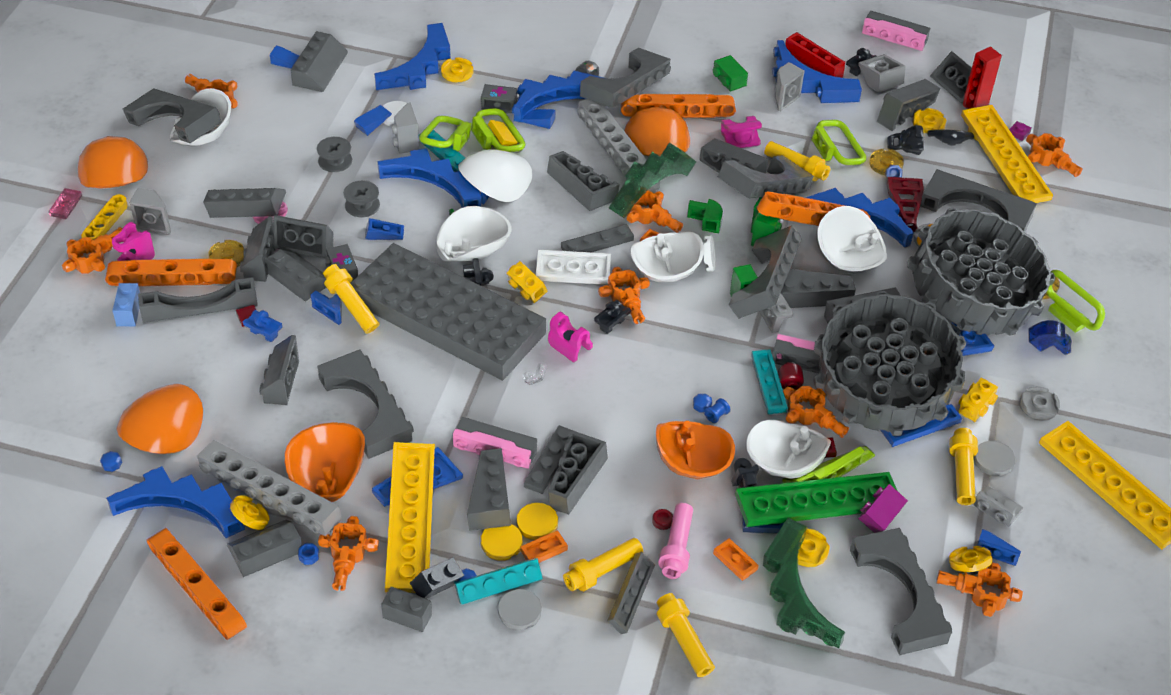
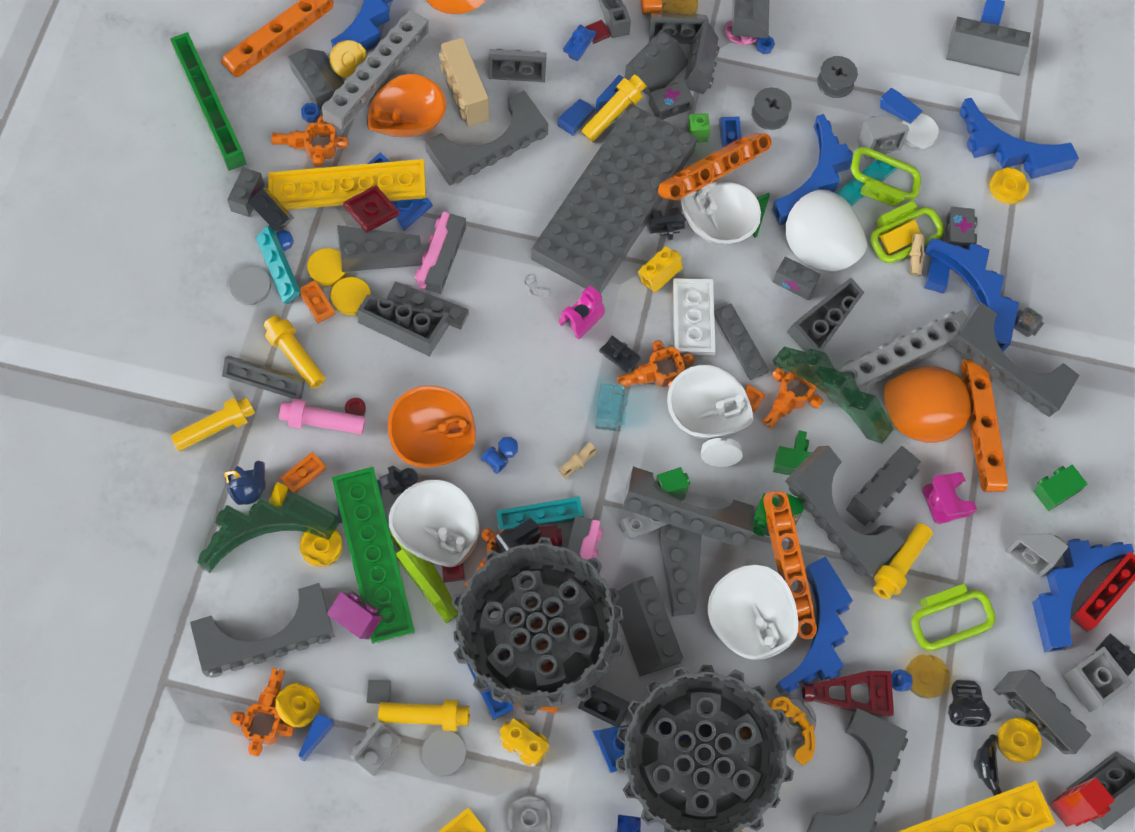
camera: 85 degrees right, 20 degrees up
(280, 645) = (208, 101): none -> green brick
(290, 198) = (765, 45): none -> blue tile
(297, 410) = (464, 82): none -> tan brick
(347, 337) = (575, 116): none -> blue slope
(375, 245) = (699, 126): none -> bright green brick
(425, 234) = (714, 166): none -> orange beam
(449, 485) = (371, 208): none -> dark red tile
(522, 124) = (917, 254): none -> tan pin
(540, 197) = (796, 278): none -> dark grey brick
(663, 326) = (610, 407): none -> clear light blue brick
(715, 353) = (577, 460): none -> tan pin
(751, 600) = (248, 484): none -> dark blue helmet
(761, 580) = (278, 494): none -> yellow slope
(802, 387) = (518, 536): none -> black piece
(946, 504) = (378, 691): none -> dark grey tile

